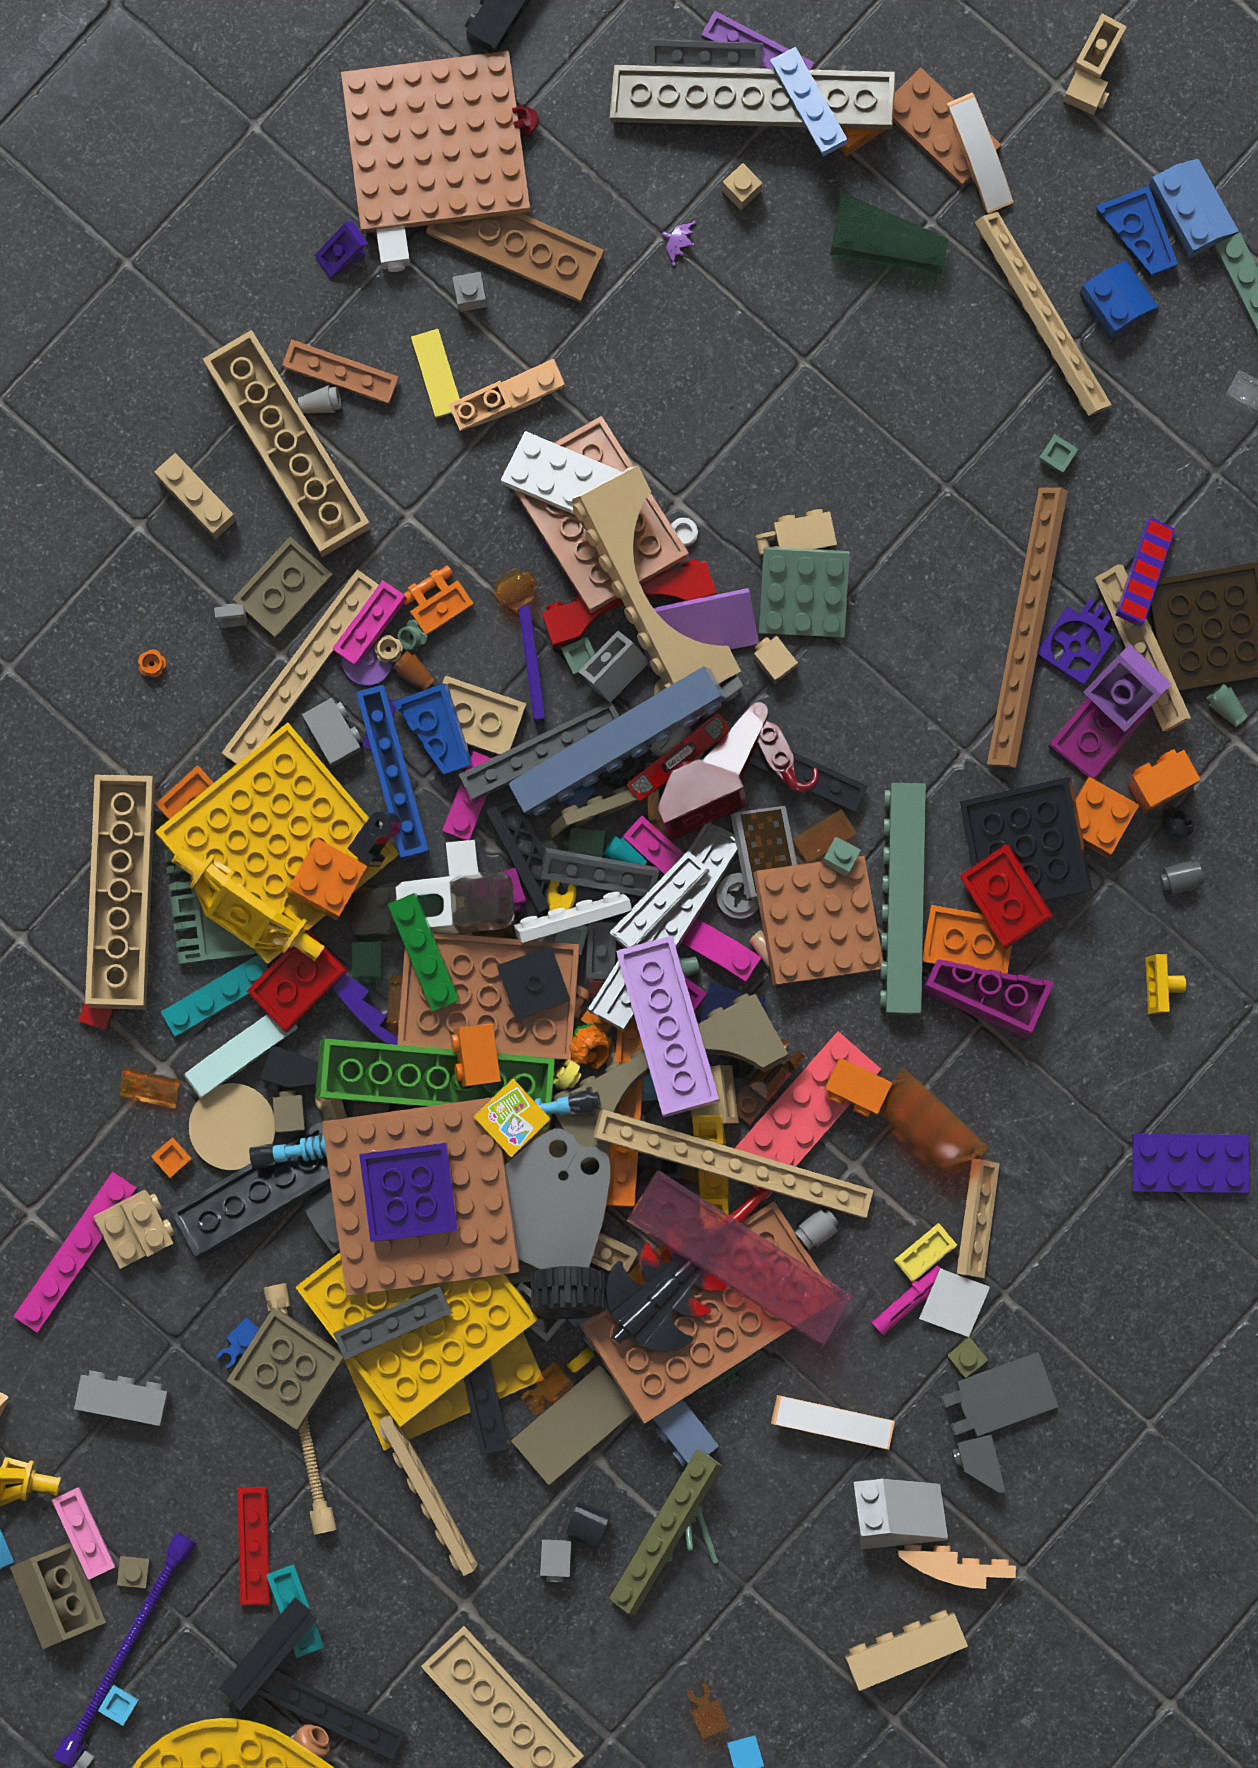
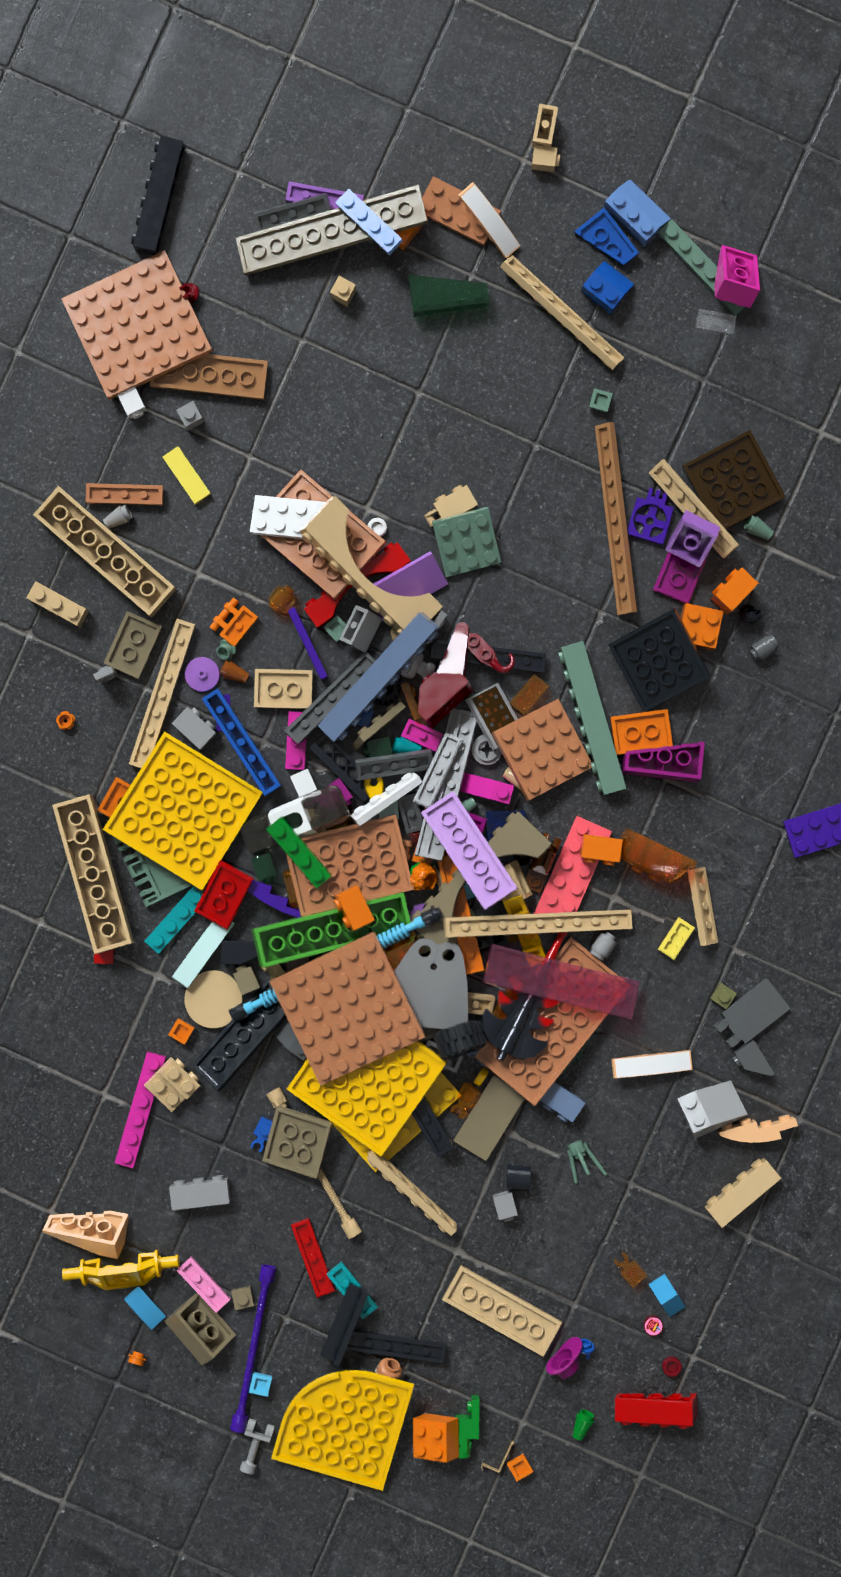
camera: 15 degrees left, 5 degrees up
(149, 1088) = (153, 991): clear orange plate -> none
(243, 912) = (175, 864): yellow plate -> none
(326, 879) = (221, 824): orange brick -> none
(342, 249) = (99, 414): dark purple slope -> none
(369, 623) = (196, 651): dark pink plate -> none
(374, 837) = (243, 788): black leg -> none
(392, 1323) = (355, 1093): dark grey plate -> none
(394, 644) = (218, 663): tan plate -> none
(409, 1192) = (339, 1010): dark purple plate -> none
(436, 723) = (259, 702): blue wing -> none
(507, 396) = (236, 476): light nougat slope -> none
(512, 1117) = (389, 941): sticker -> none
(533, 983) = (374, 849): black plate -> none
(566, 1075) = (414, 900): light yellow plate -> none
(665, 1532) = (569, 1167): olive plate -> none
(678, 240) = (313, 338): medium lavender piece -> none
(684, 751) = (423, 670): sticker -> none
(774, 659) = (461, 590): tan brick -> none
(841, 856) = (544, 704): sand green plate -> none
(907, 1302) = (676, 970): dark pink pin -> none
(954, 1302) = (704, 964): white sticker -> none
(1006, 896) = (657, 696): red tile -> none
(1145, 572) = (680, 459): tile -> none
(1160, 984) = (772, 720): yellow tile -> none

